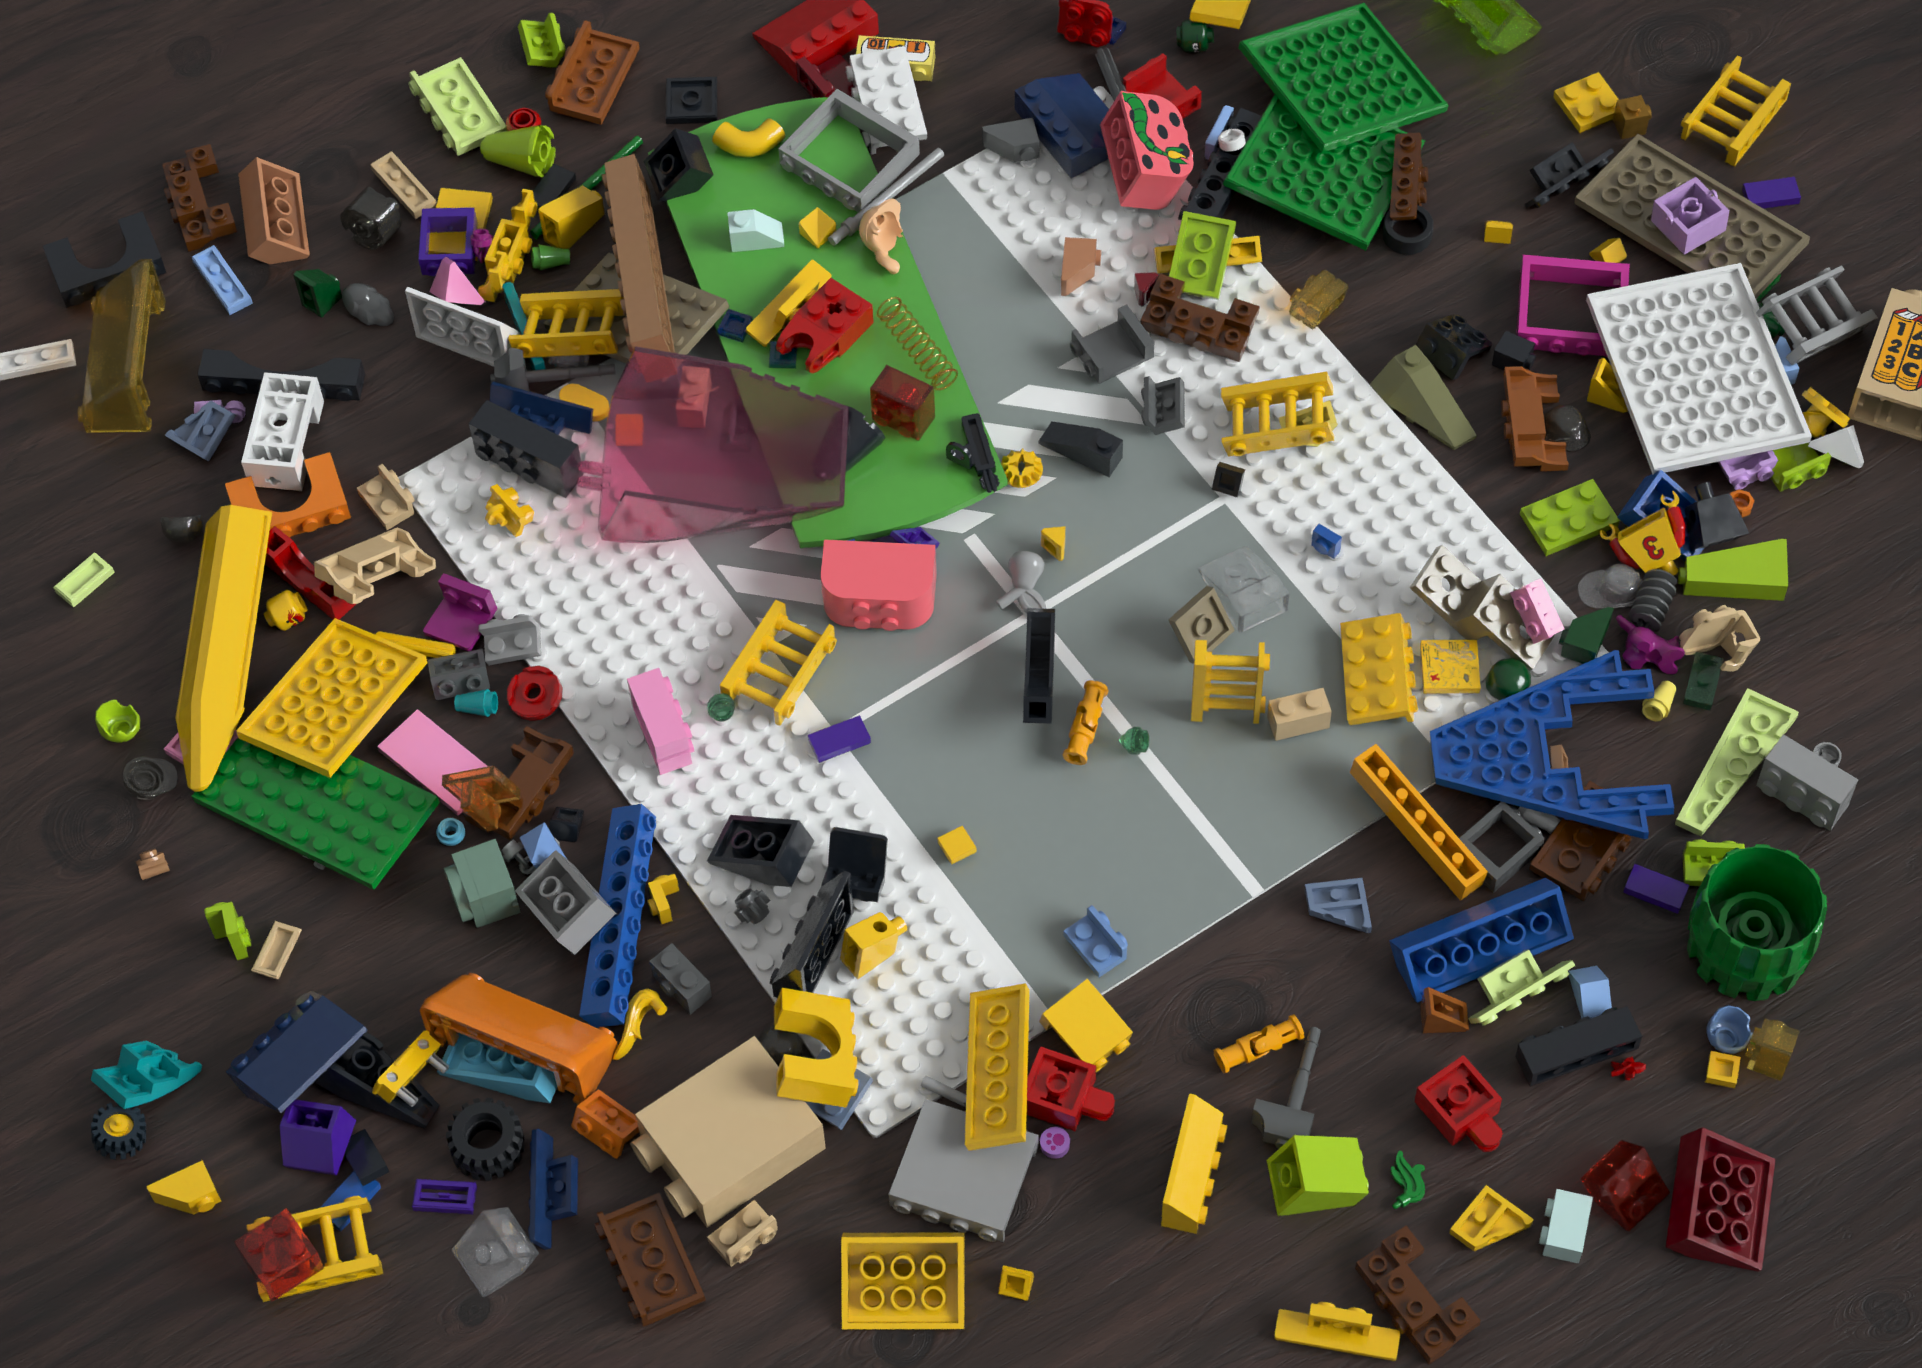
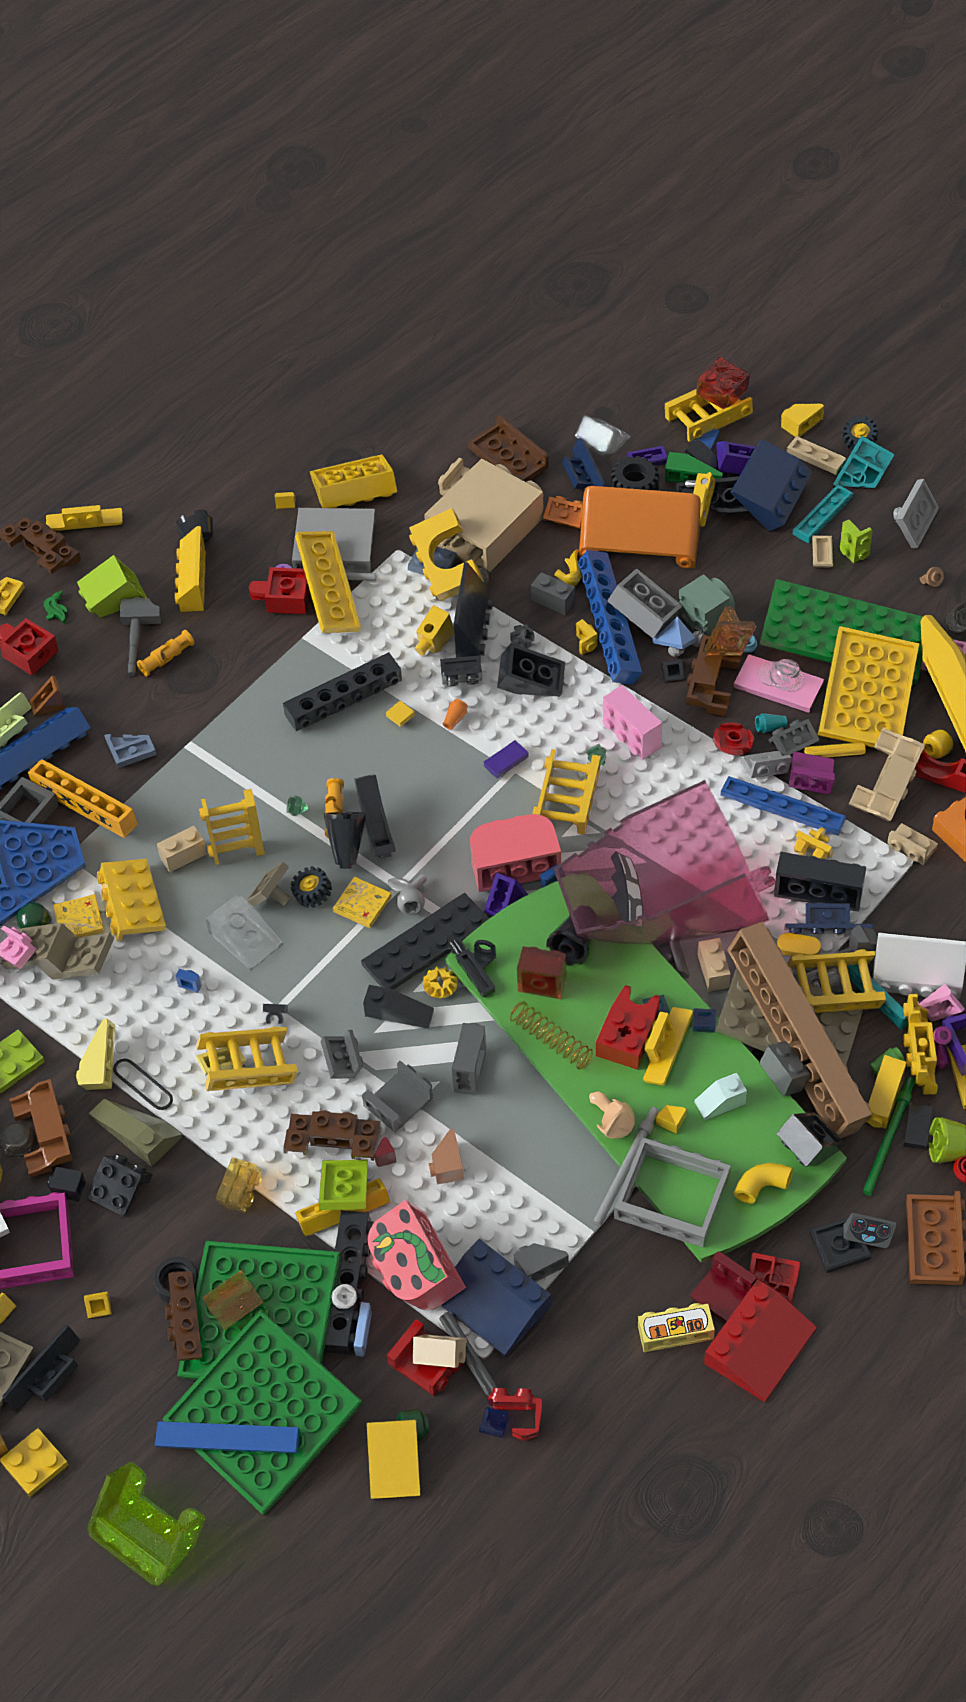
camera: 165 degrees right, 5 degrees down
(124, 957) = (916, 513): none -> light grey plate
(200, 1117) = (816, 455): none -> tan plate
(241, 1018) = (822, 513): none -> teal tile
(402, 1145) = (685, 467): none -> green slope
(428, 760) = (782, 675): none -> clear piece
(518, 580) = (783, 805): none -> blue tile
(658, 95) = (869, 1230): none -> slope
(671, 244) = (784, 1068): none -> dark grey brick
(766, 455) = (628, 895): none -> slope
(770, 85) = (776, 1273): none -> red slope
(883, 818) = (456, 711): none -> orange cone
(886, 86) = (665, 1273): white bracket -> none
(1015, 903) = (342, 691): none -> black brick
(1018, 351) = (469, 1058): none -> dark grey window
(1019, 521) = (423, 942): none -> black plate
(1054, 541) = (395, 926): yellow slope -> none
(1080, 661) = (345, 836): none -> black cone
(1085, 592) = (362, 902): none -> yellow tile
(1088, 1025) = (281, 626): yellow panel -> none
(1097, 942) = (287, 678): medium blue bracket -> none
(1143, 78) = (439, 1350): none -> tan hinge
(1144, 618) = (311, 887): none -> black wheel
(1168, 1244) = (200, 518): none -> black cone
(1354, 165) = (232, 1300): none -> clear orange bracket
(1385, 60) = (227, 1437): none -> blue tile
(1413, 437) = (136, 1090): none -> black piece
(1456, 471) = (97, 1063): none -> light yellow slope

